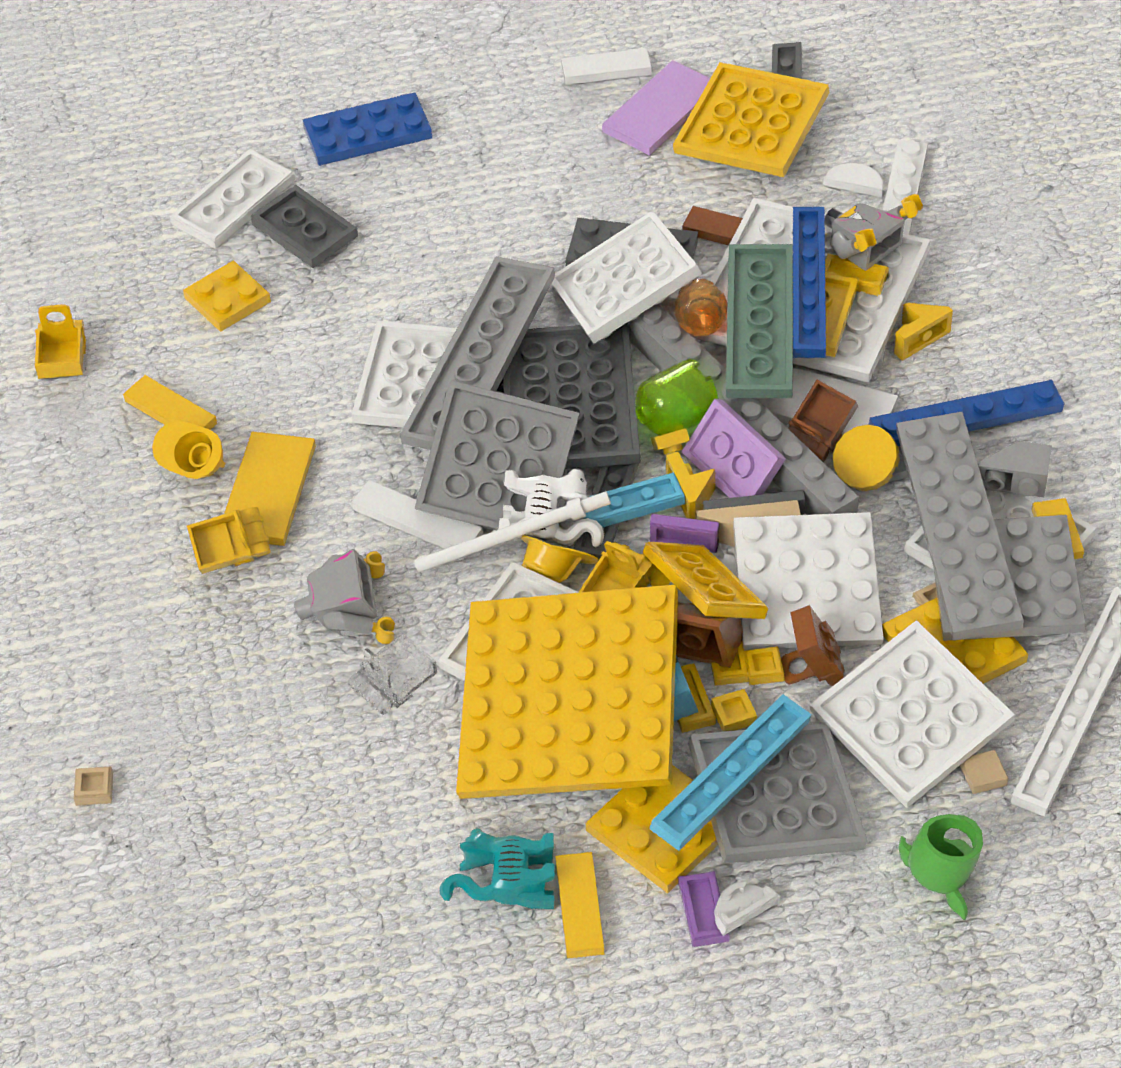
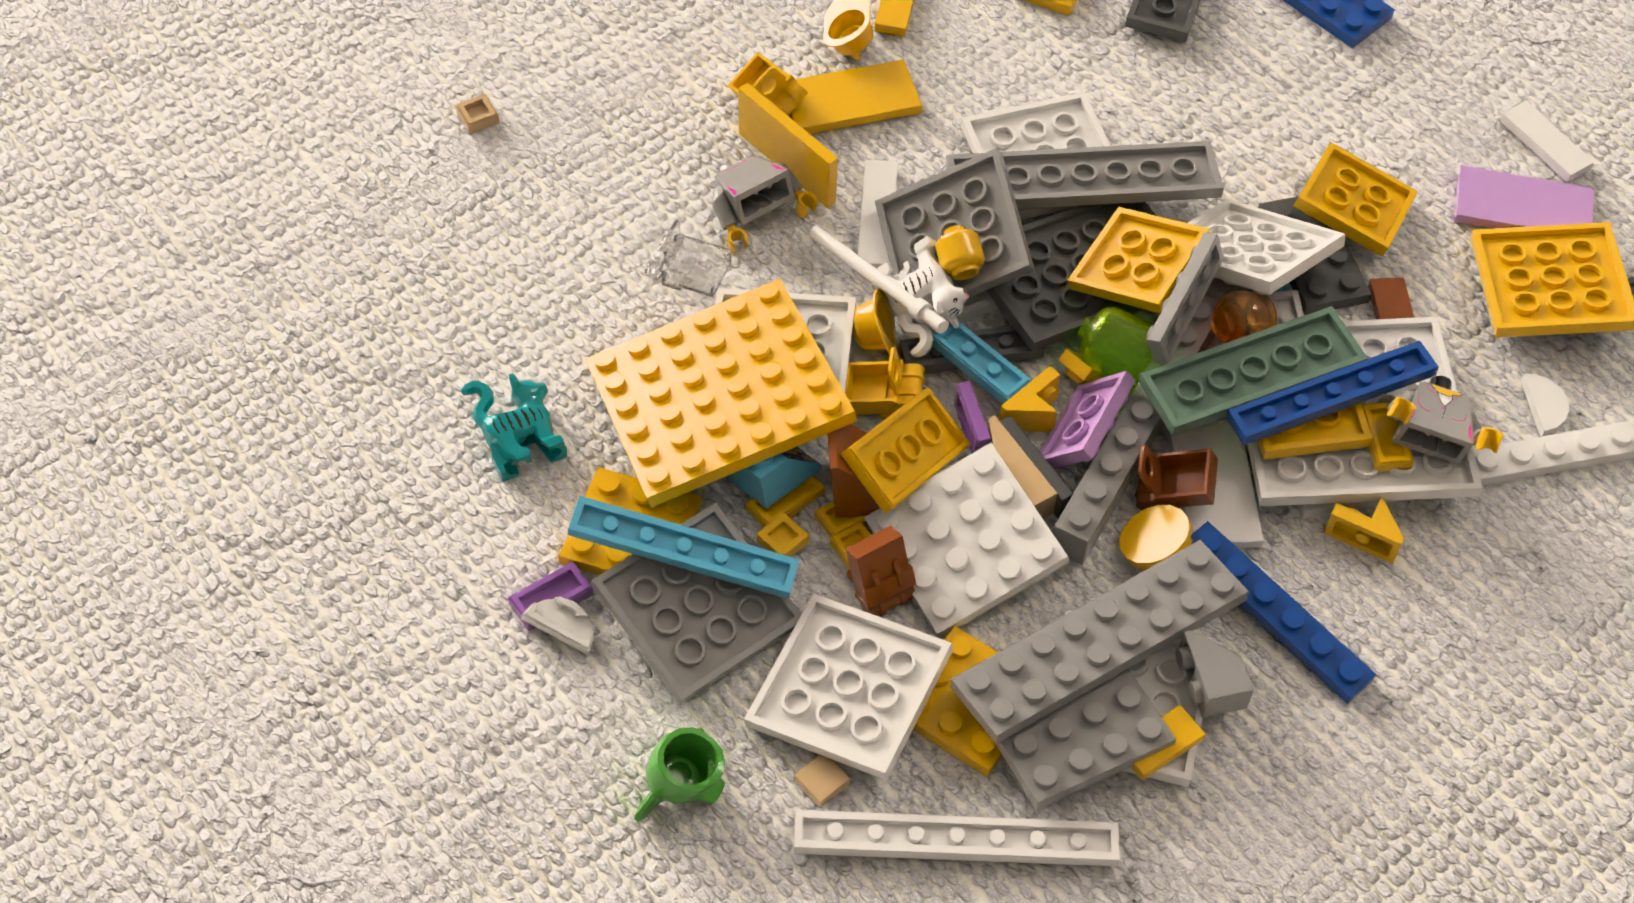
camera: 60 degrees right, 5 degrees up
(308, 544) = (787, 143): none -> yellow tile
(533, 456) = (960, 252): none -> yellow head
(579, 905) = (510, 497): yellow tile -> none
(604, 196) = (1356, 199): none -> yellow plate
(606, 345) = (1136, 259): none -> yellow plate
(683, 334) = (1185, 298): none -> light grey plate

